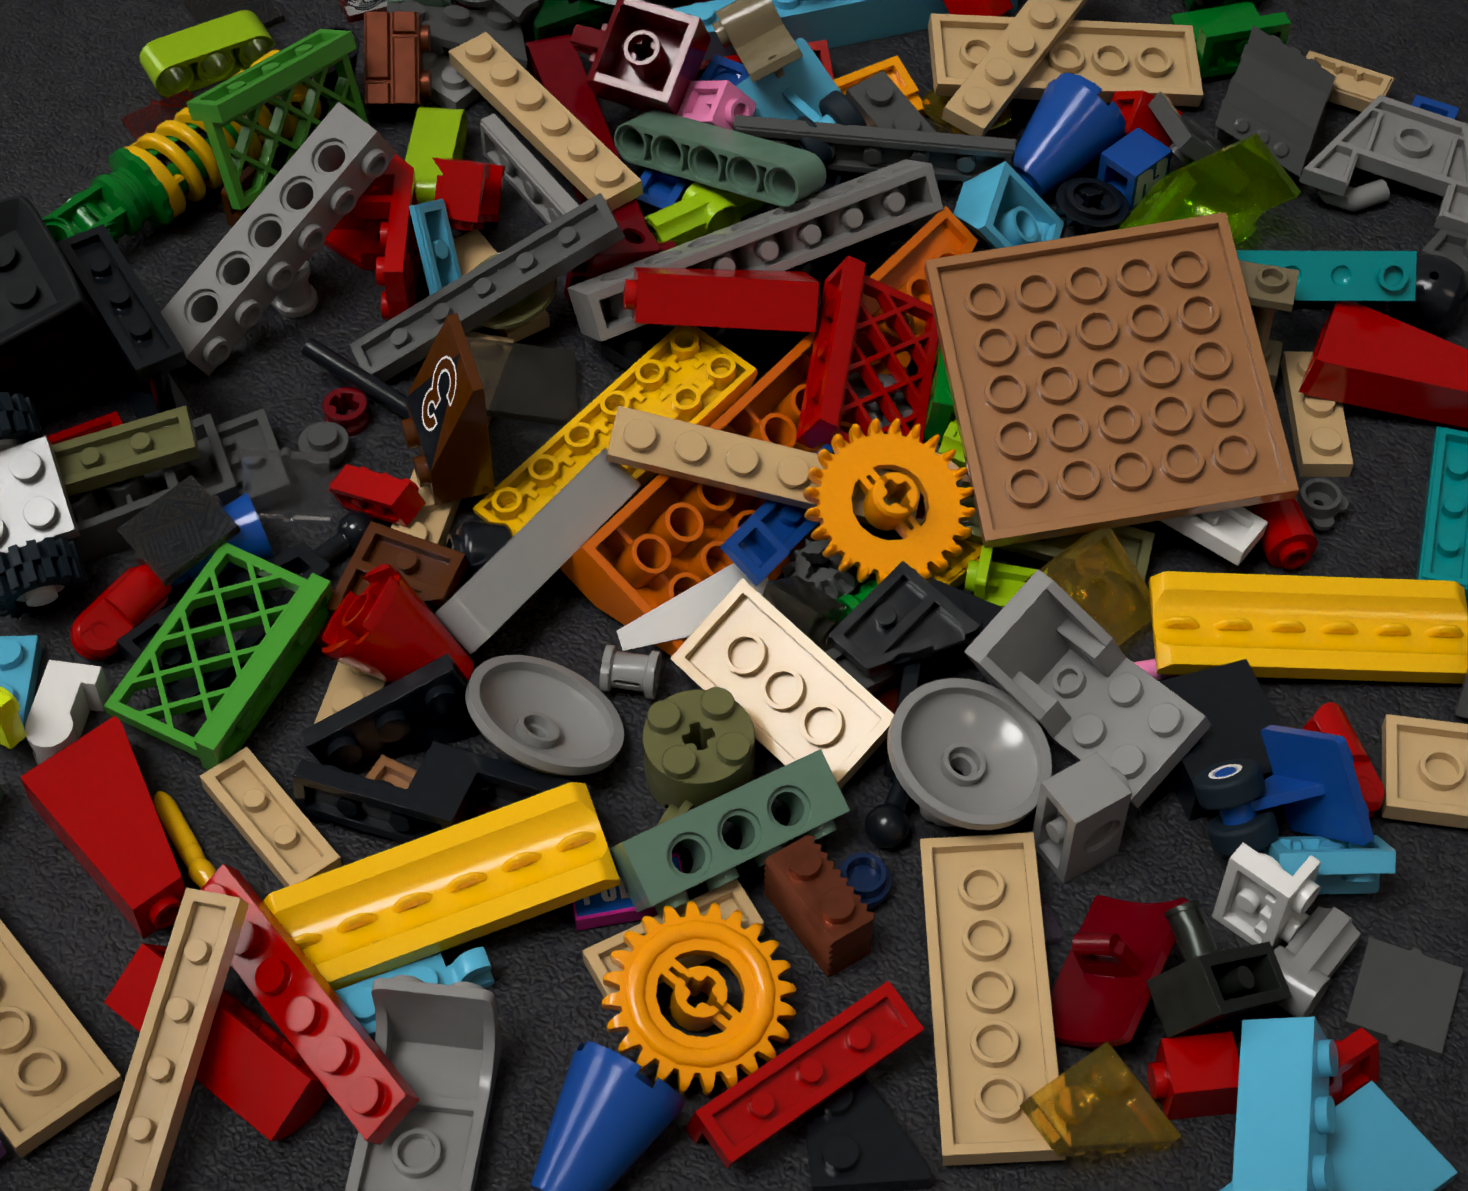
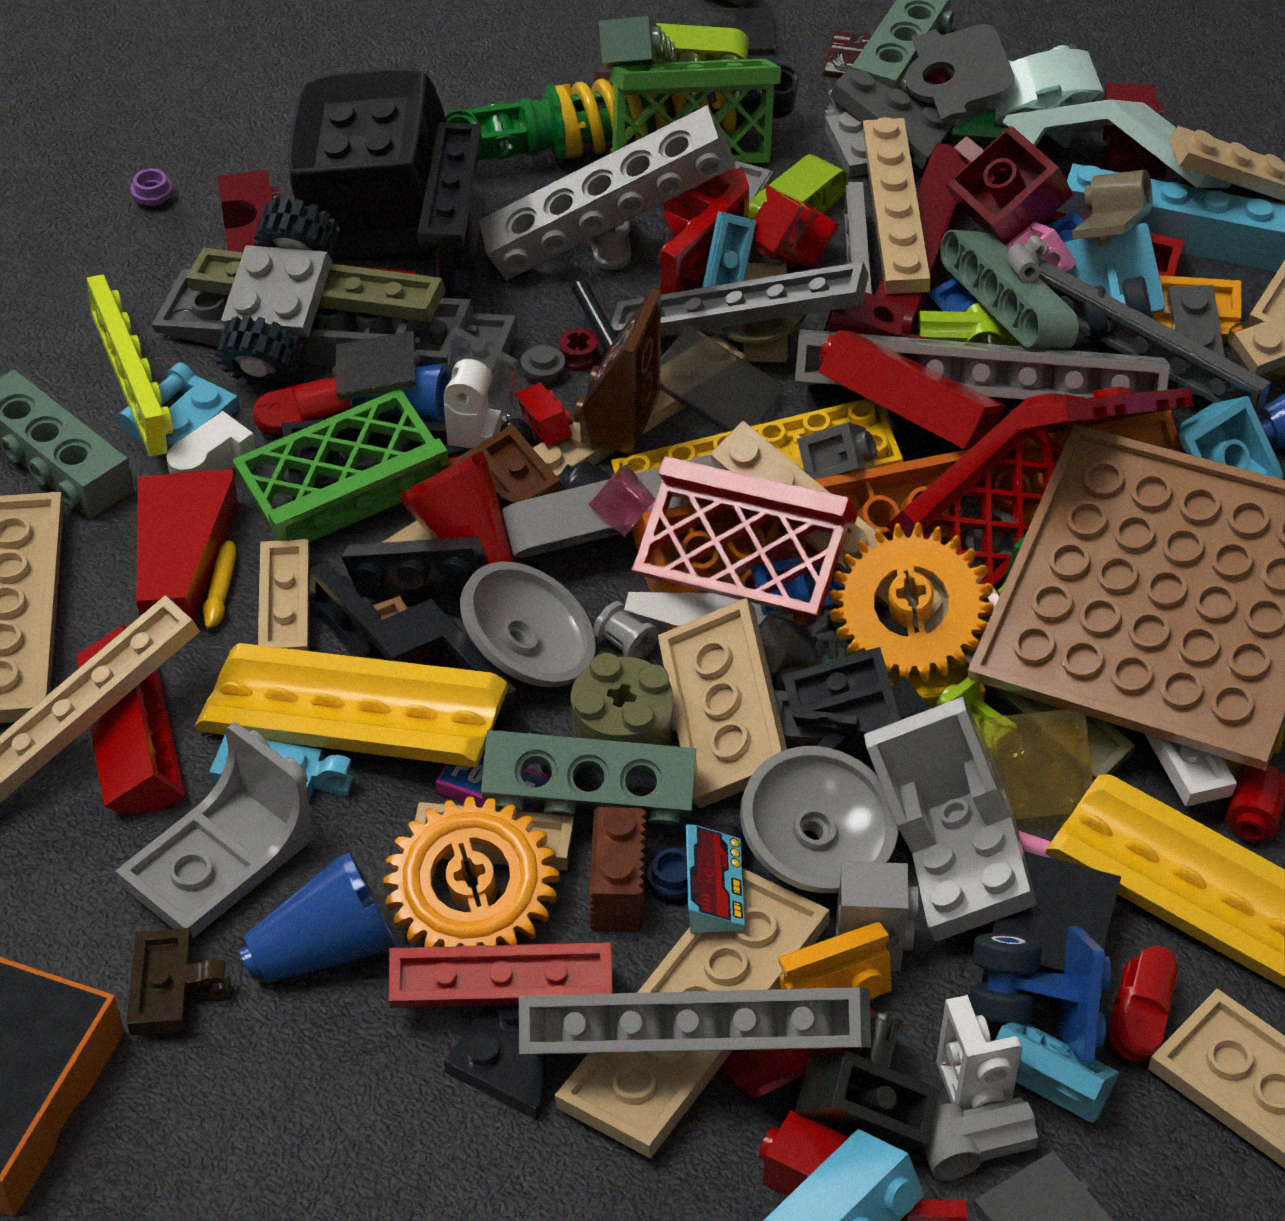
camera: 35 degrees right, 5 degrees down
(186, 73) = (634, 42): none -> sand green brick
(313, 524) = (467, 405): none -> white leg
(315, 1017) = (195, 730): red plate -> none
(395, 60) = (819, 111): copper brick -> none
(552, 542) = (623, 500): none -> clear pink slope
(689, 476) = (753, 496): none -> fence
(705, 392) = (837, 450): none -> dark grey bracket
(723, 123) = (1026, 258): none -> light grey arm
(918, 867) = (714, 881): none -> slope
(923, 242) = (1062, 411): none -> red wing
(1038, 1010) = (695, 1021): none -> light grey brick
(1092, 887) = (841, 962): none -> light orange plate
(1098, 1109) = (701, 1132): clear yellow wing -> none

